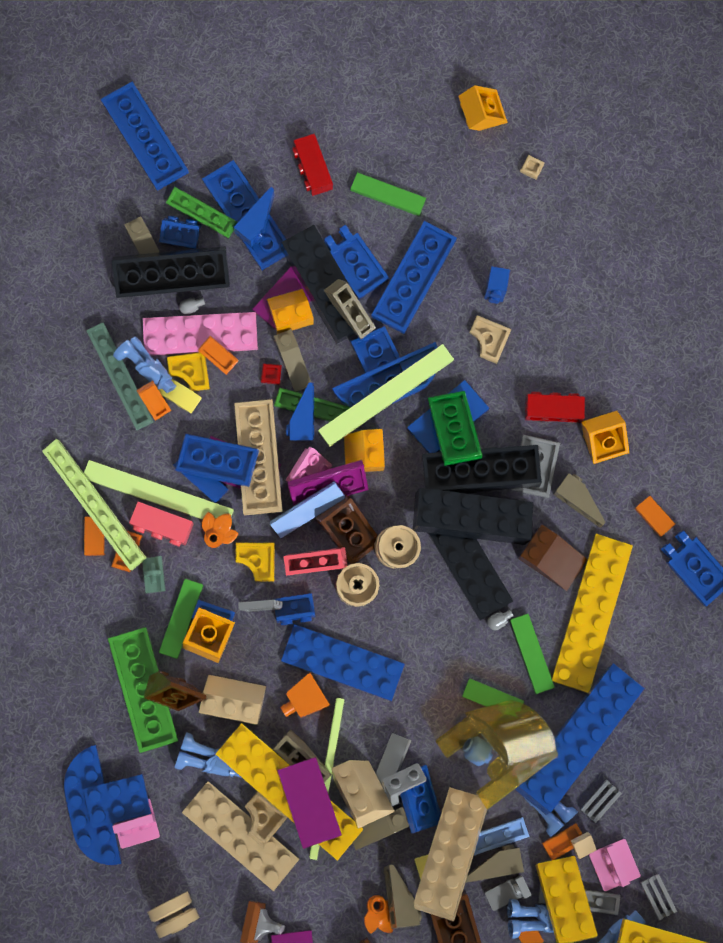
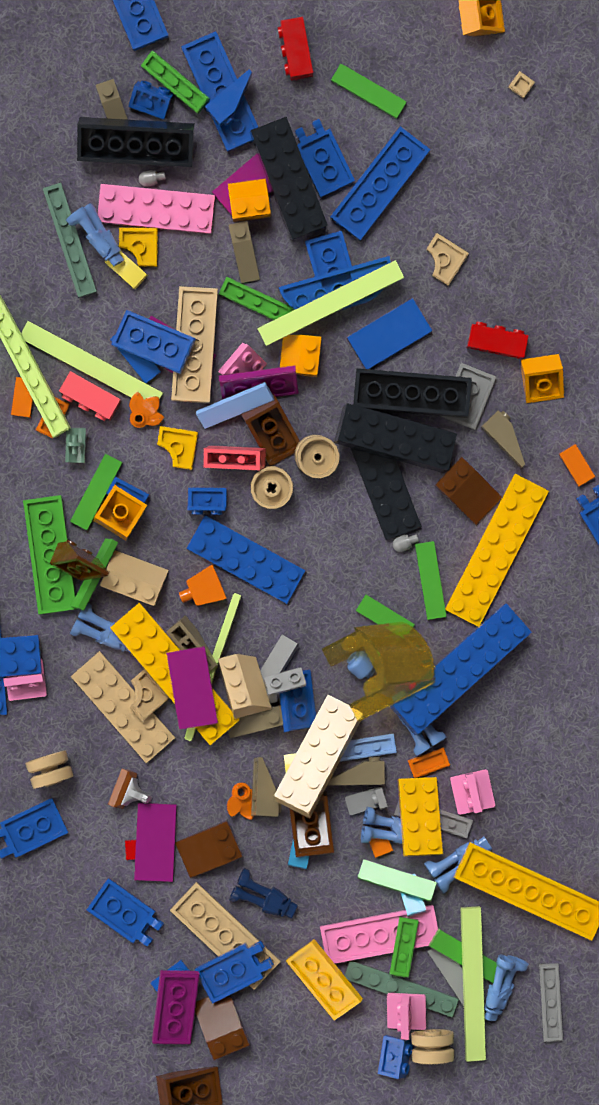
camera: 15 degrees right, 10 degrees up
(153, 400) = (99, 271): orange tile -> none
(187, 714) = (88, 586): none -> bright green tile
(218, 355) = (170, 234): orange tile -> none
(260, 605) = (182, 493): light grey tile -> none
(271, 374) = (220, 261): red tile -> none
(302, 420) = (244, 315): blue slope -> none
(350, 308) = (308, 210): dark tan slope -> none
(454, 428) = (393, 347): green tile -> none
(497, 284) = (461, 206): blue brick -> none
(583, 845) = (446, 769): tan tile -> none
(611, 789) = (483, 720): light grey tile -> none
(651, 881) = (513, 843): light grey tile -> none

